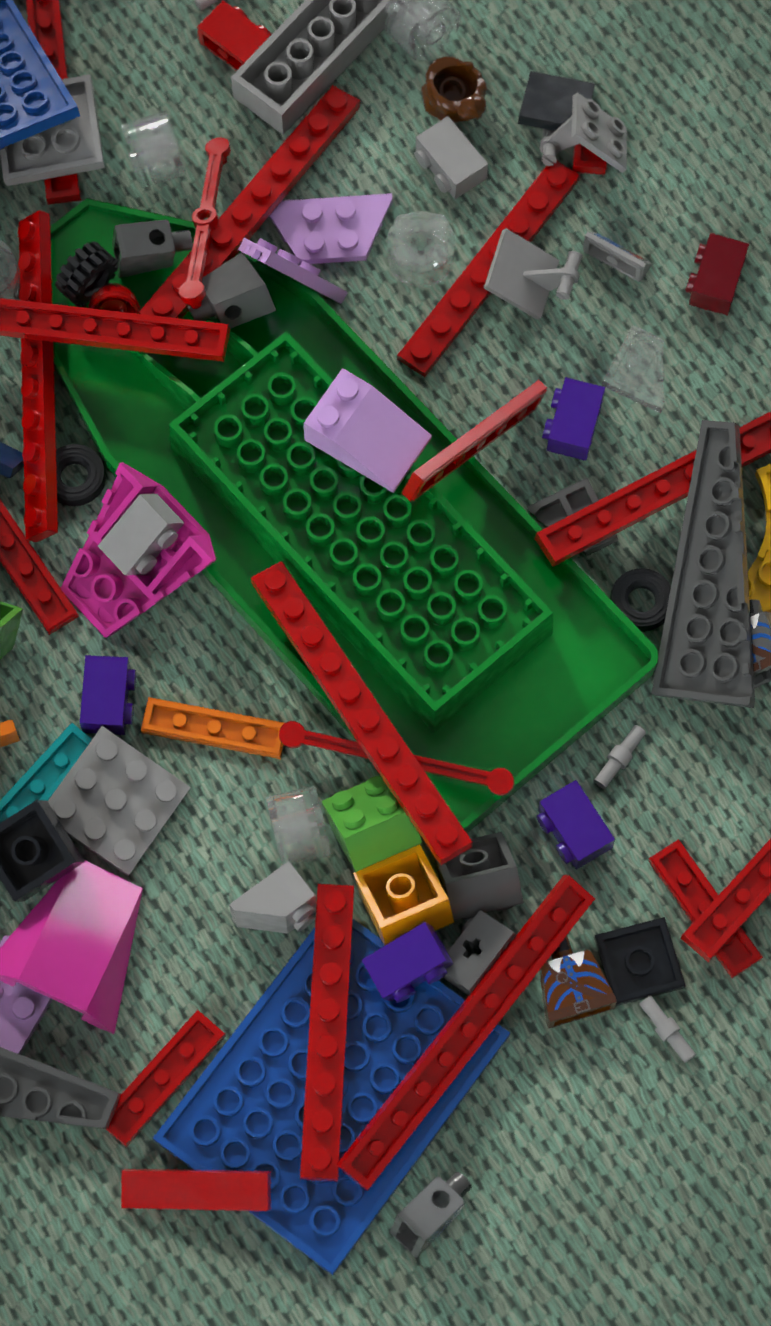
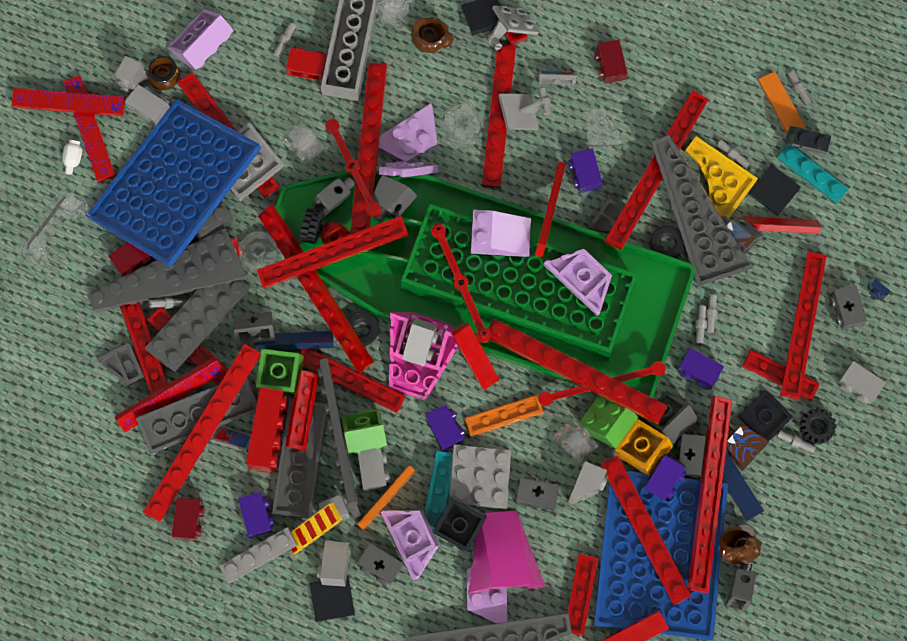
camera: 30 degrees left, 5 degrees up
(169, 872) = (544, 501): none -> dark grey brick
(216, 604) = (475, 356): none -> red tile
(246, 573) = (483, 334): none -> red piece
(450, 158) = (449, 70): light grey brick -> none
(458, 568) = (582, 277): none -> lavender wing
(467, 1142) = (739, 545): none -> reddish brown piece
(525, 1052) = (740, 490): none -> dark blue tile
(647, 749) = (711, 314): none -> light grey bar
(723, 1002) = (821, 415): none -> black tyre

